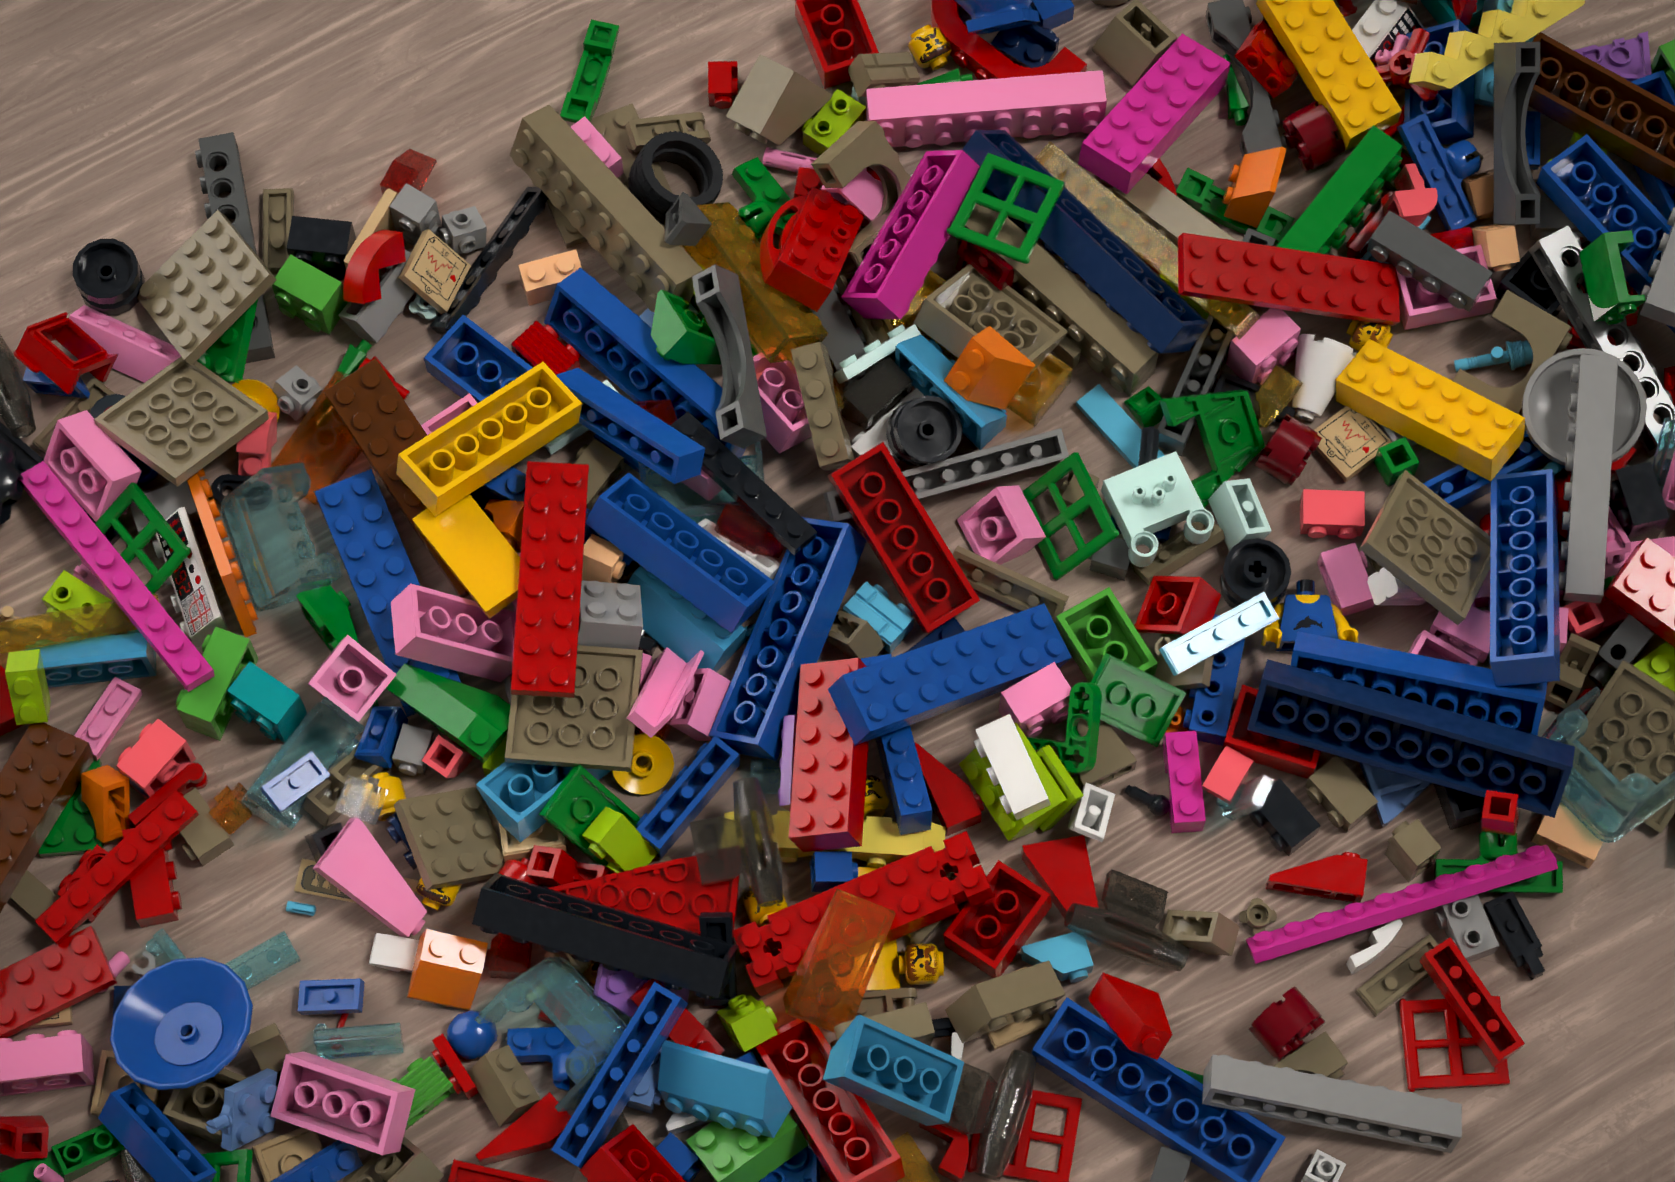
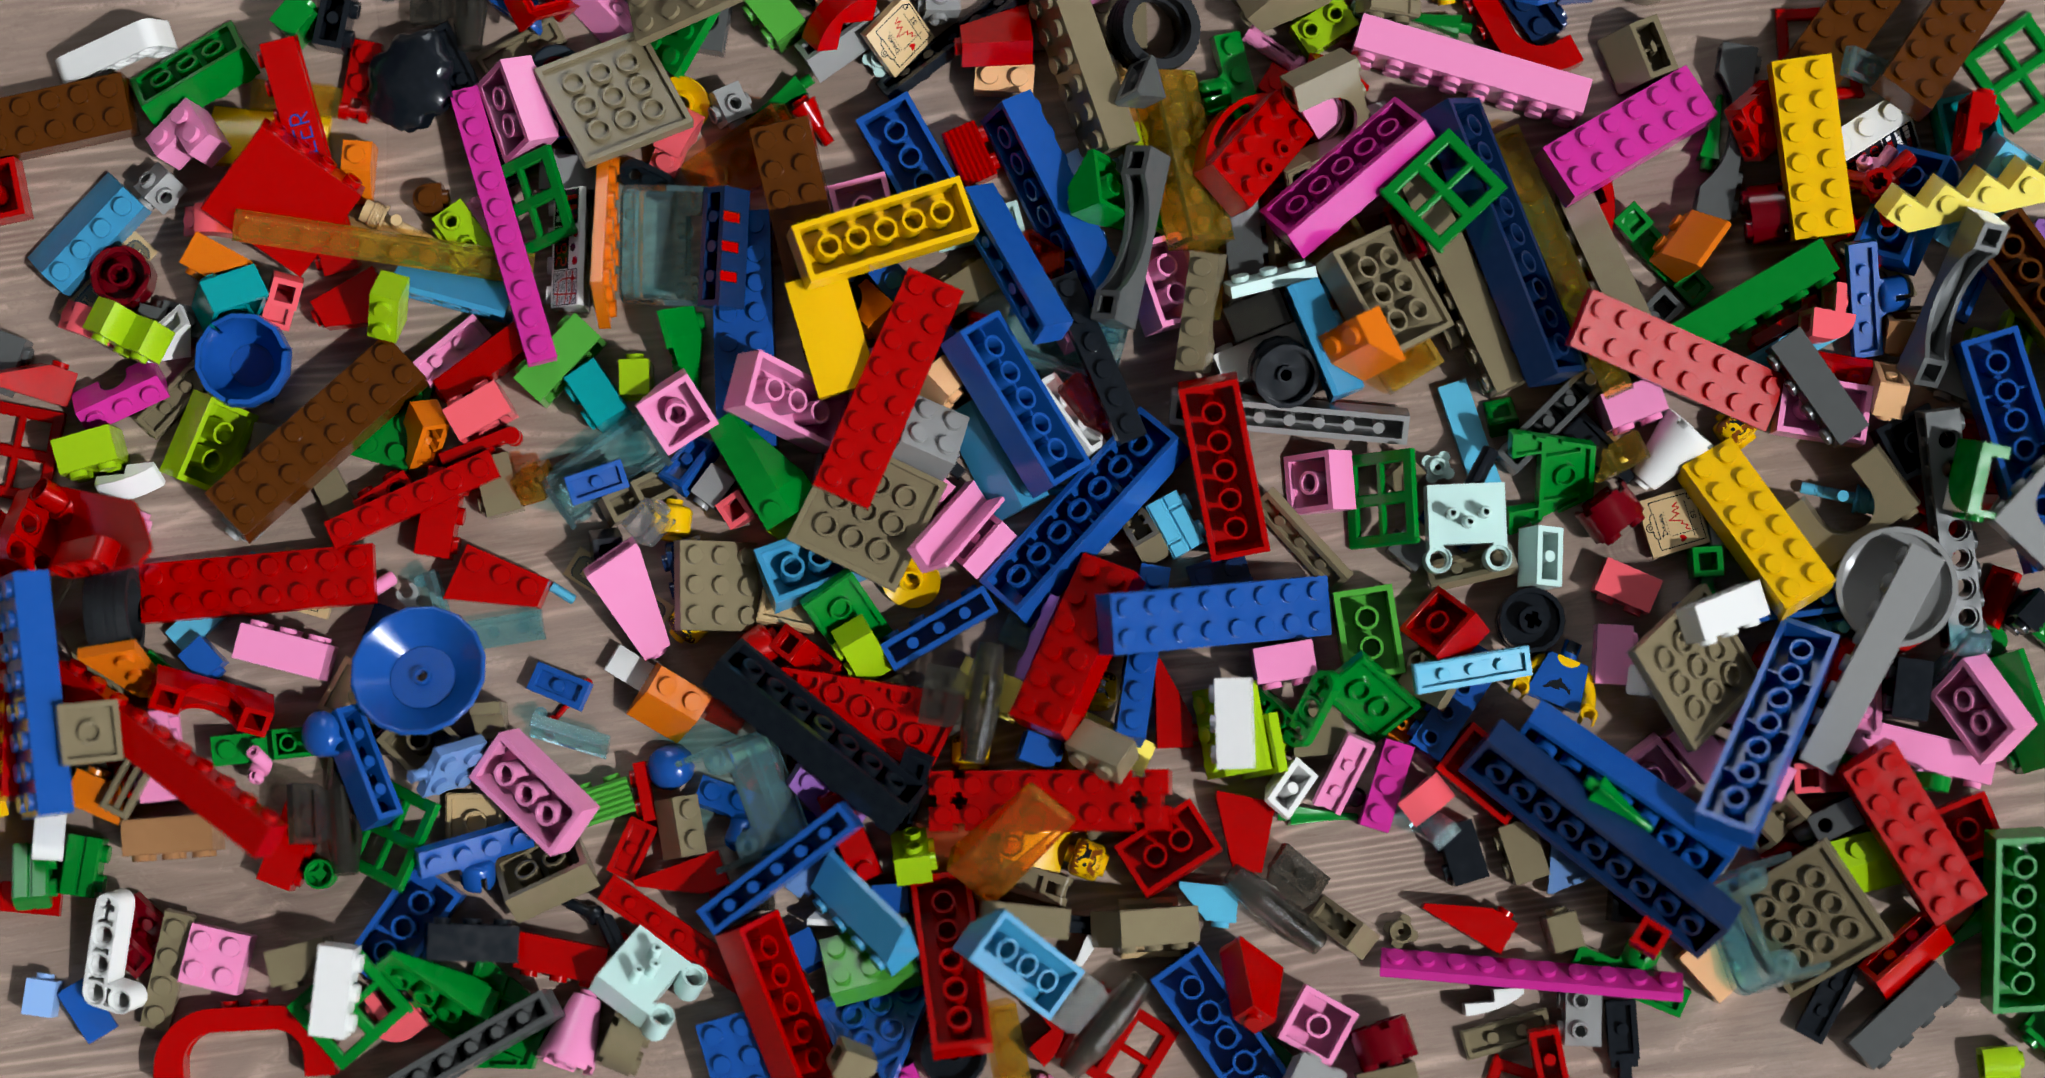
camera: 20 degrees right, 15 degrees up
(34, 584) = (431, 198): none -> reddish brown plate
(105, 1126) = (321, 734): none -> blue hair
(151, 701) = (487, 361): none -> red slope
(230, 918) = (494, 581): none -> red wedge
(298, 669) = (635, 377): none -> lime brick
(340, 513) = (723, 248): none -> dark blue brick
(463, 1128) = (632, 849): none -> red plate
(531, 240) = (997, 40): none -> red slope
(894, 838) = (1102, 751): none -> dark tan brick
(1107, 465) = (1442, 460): none -> light aqua plate
(1117, 841) = (1309, 815): none -> green piece
(1138, 782) = (1343, 773): none -> bright pink hinge
(1213, 1028) = (1317, 1024): none -> bright pink brick
(1401, 691) = (1607, 796): none -> green piece
(1434, 487) = (1723, 613): none -> white brick

